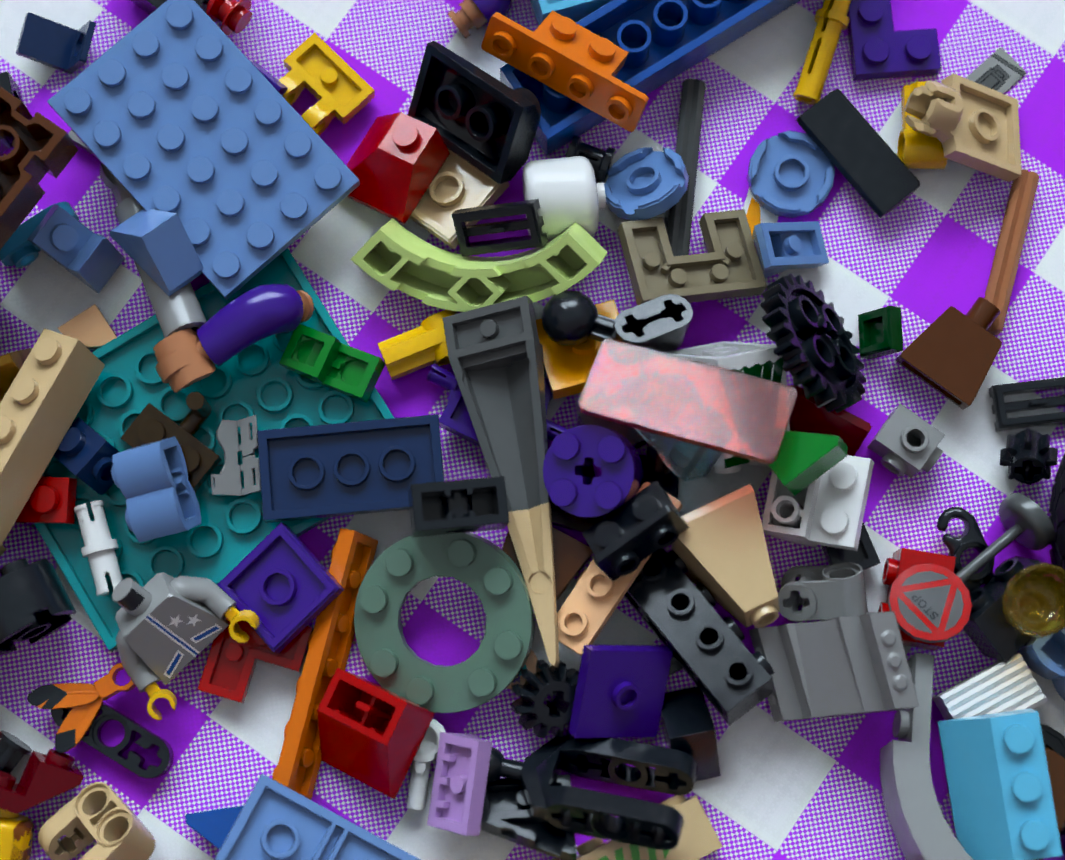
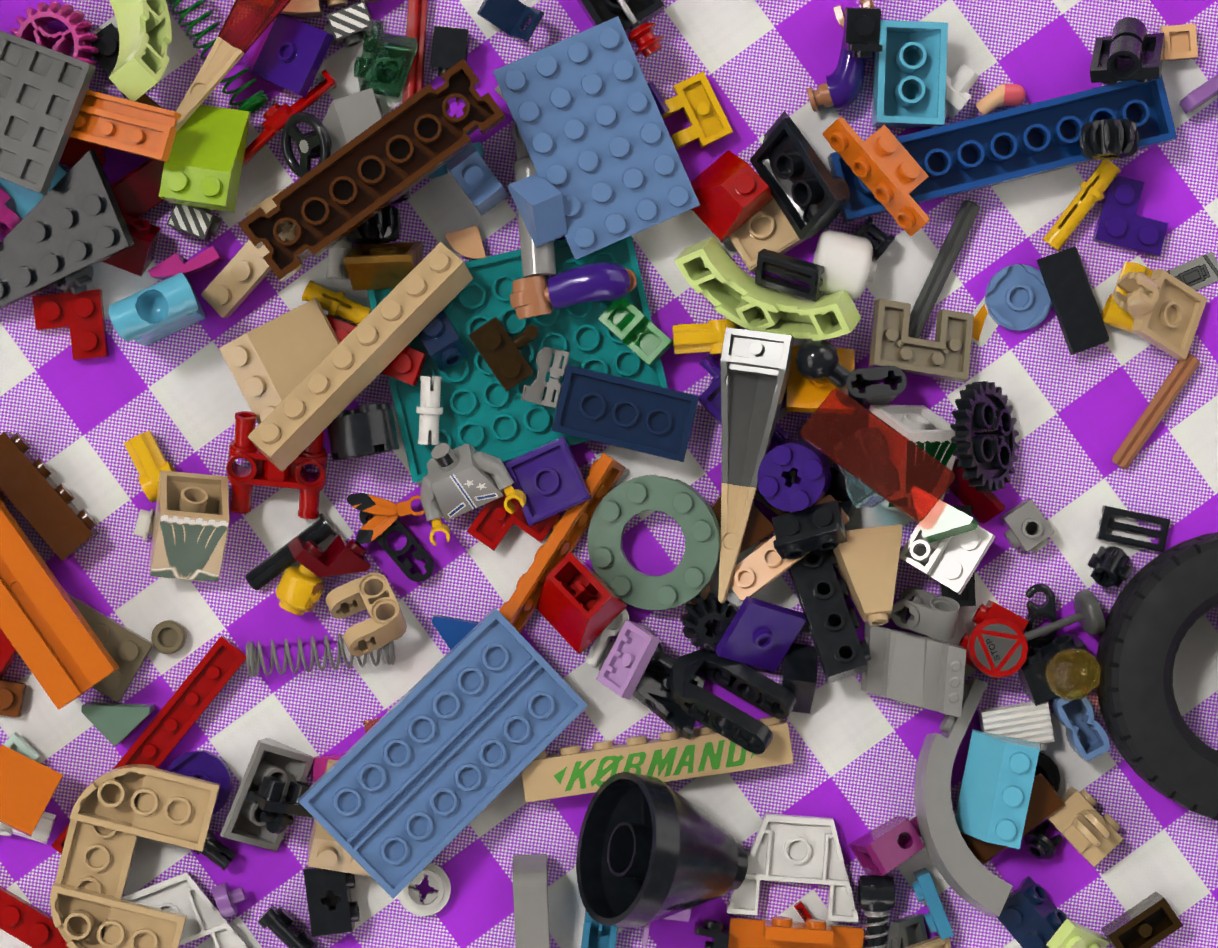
camera: 20 degrees right, 10 degrees up
(156, 489) = (483, 383): medium blue brick -> none
(458, 506) = (691, 471): black brick -> none
(645, 183) = (908, 272): medium blue tile -> none
(789, 246) = (996, 355): medium blue slope -> none
(880, 332) = (1038, 440): dark green tile -> none
(955, 352) = (1086, 473): reddish brown torso -> none

